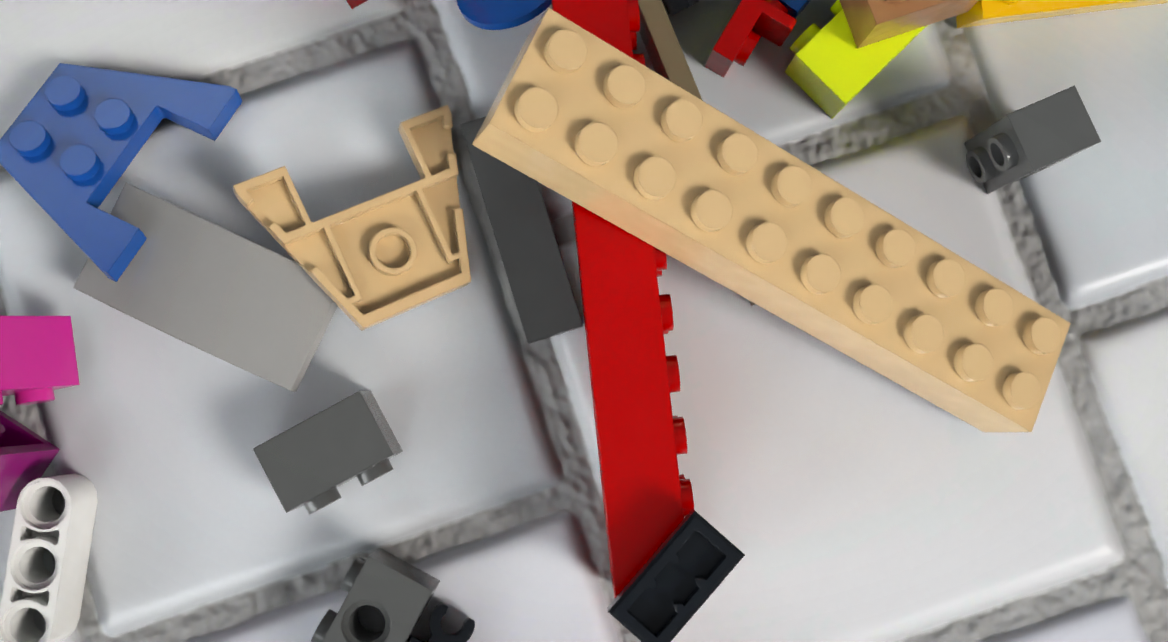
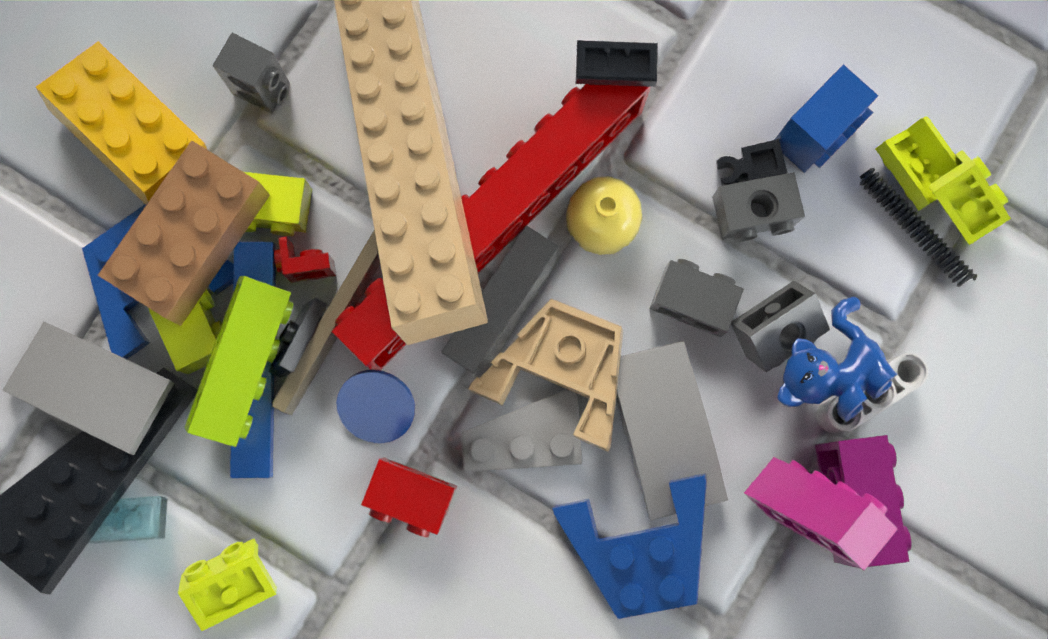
camera: 130 degrees left, 5 degrees down
(106, 504) = (815, 375): none -> blue animal
(210, 521) = (775, 324): none -> dark grey brick
(340, 124) = (526, 437): none -> light grey wing
(520, 428) = (604, 215): none -> light yellow cylinder

